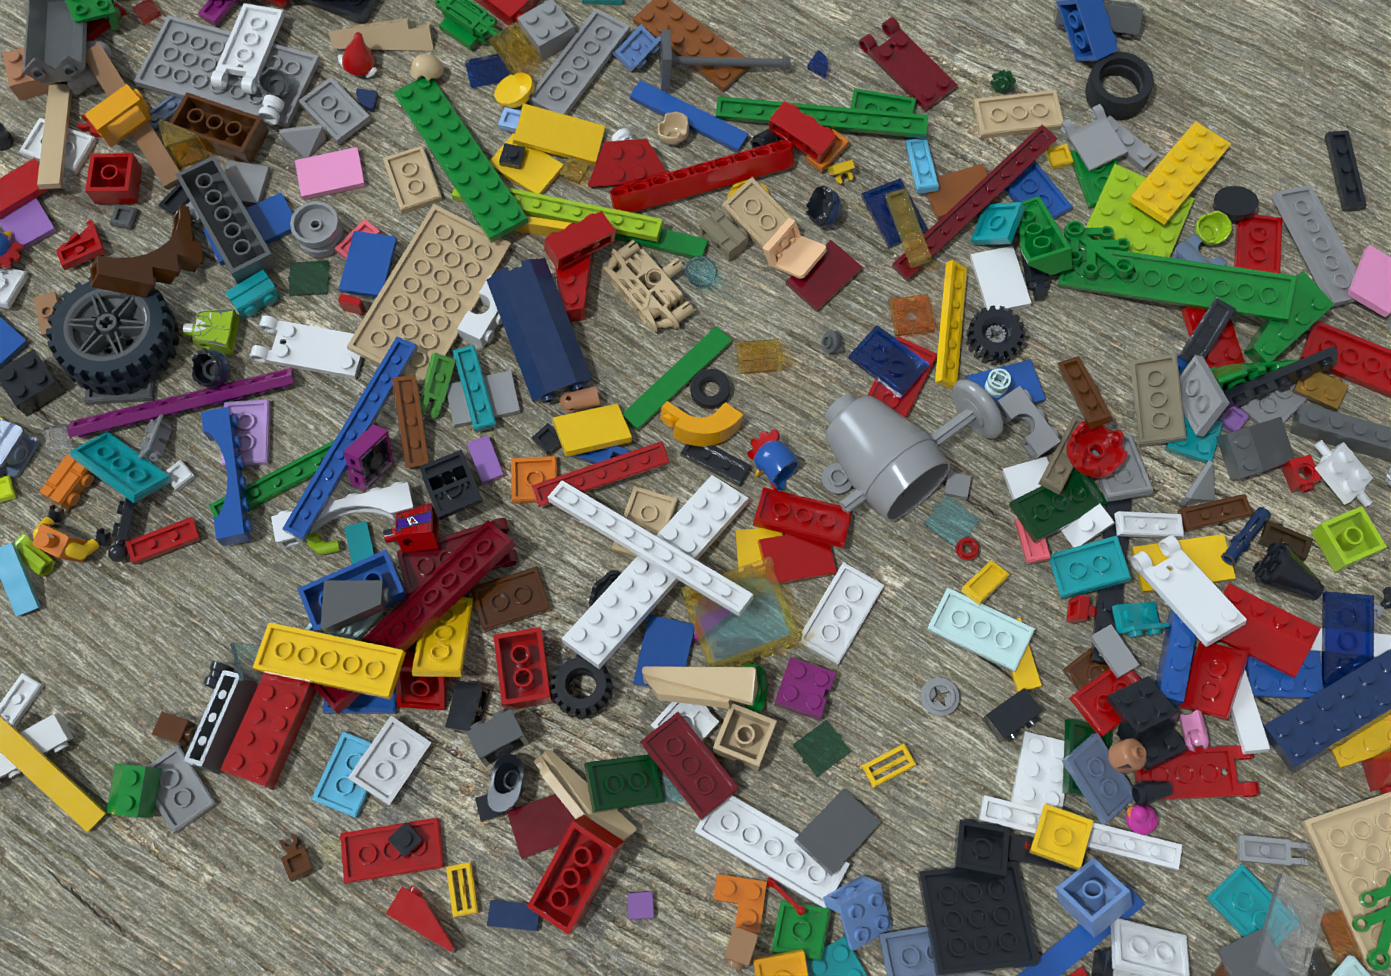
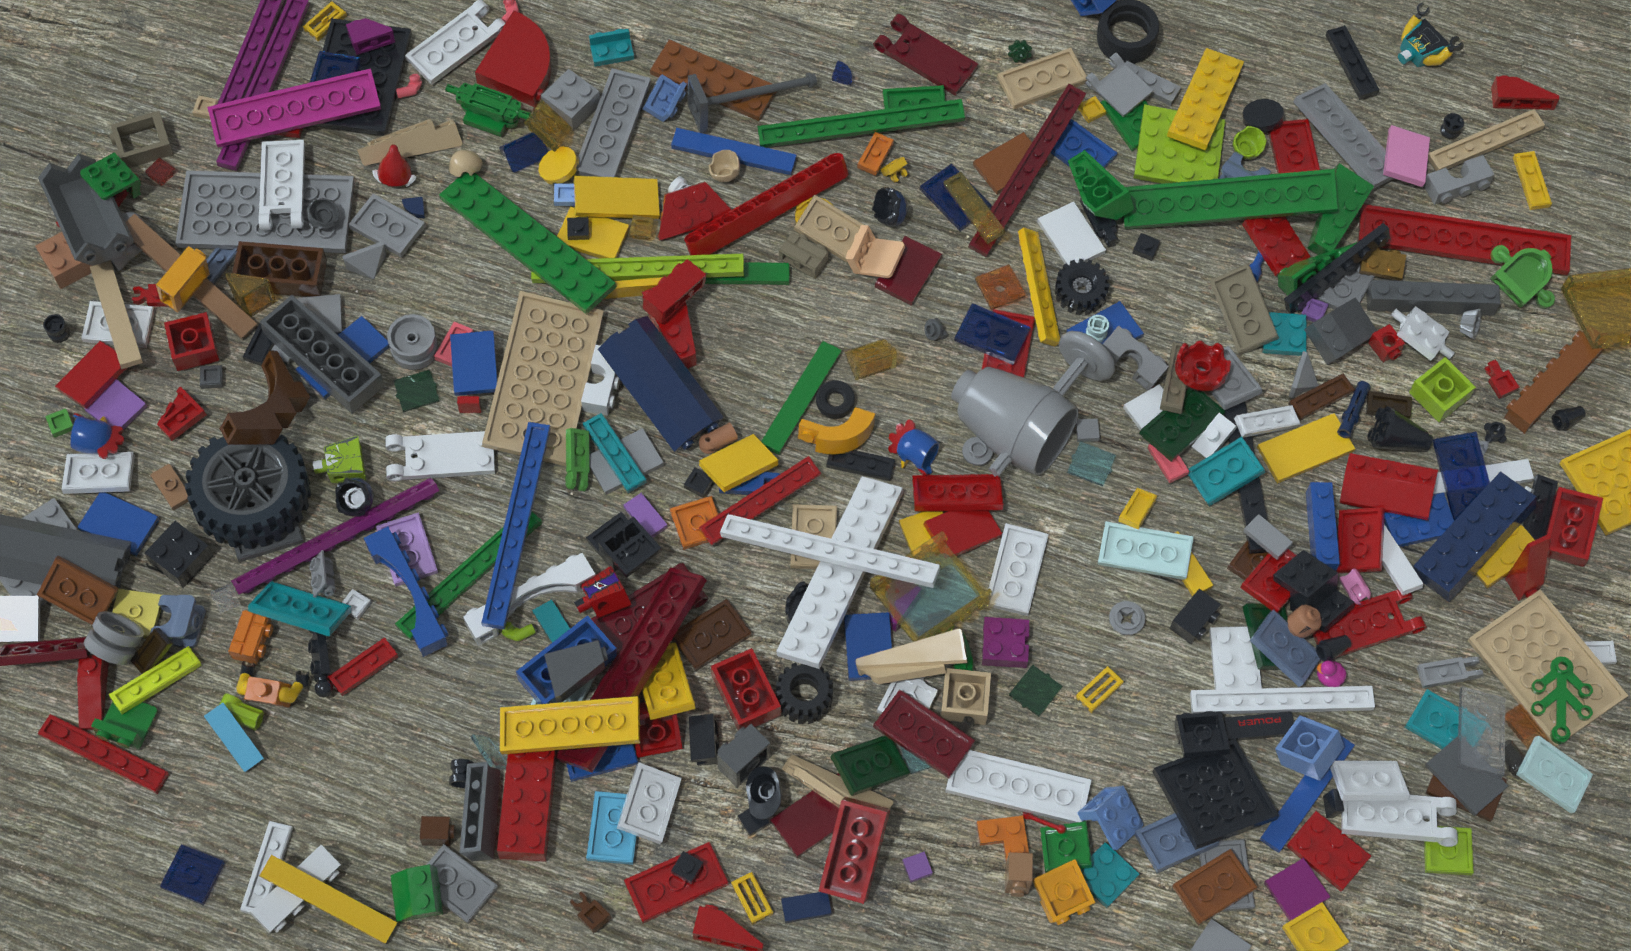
camera: 20 degrees left, 5 degrees down
(253, 294) = (369, 418): teal brick -> none
(271, 108) = (328, 238): white wheel -> none
(330, 173) = (402, 286): bright pink tile -> none
(369, 457) = (539, 538): magenta piece -> none
(410, 421) = (565, 497): dark orange plate -> none
(412, 179) = (485, 273): tan tile -> none
(655, 298) = (743, 329): tan piece -> none
(700, 272) = (793, 294): clear light blue hair -> none
(763, 138) = (814, 155): black cone -> none
(802, 131) = (850, 141): red brick -> none
(837, 832) = (1072, 755): dark grey tile -> none
(921, 165) = (968, 147): medium azure tile -> none
(972, 544) = (1117, 479): red plate -> none
(998, 224) = (1054, 184): teal plate -> none
(1061, 836) = (1267, 704): yellow plate -> none
(1074, 310) = (1146, 247): none -> black plate
(1076, 233) = (1128, 175): green plant -> none
(1079, 609) = (1227, 510): red tile -> none
(1084, 392) = (1177, 318): reddish brown plate -> none
(1138, 618) = (1280, 505): teal bracket -> none
(1189, 593) = (1317, 469): white hinge -> none
(1201, 396) = (1281, 295): light grey plate -> none
(1207, 330) = (1270, 238): black tile -> none

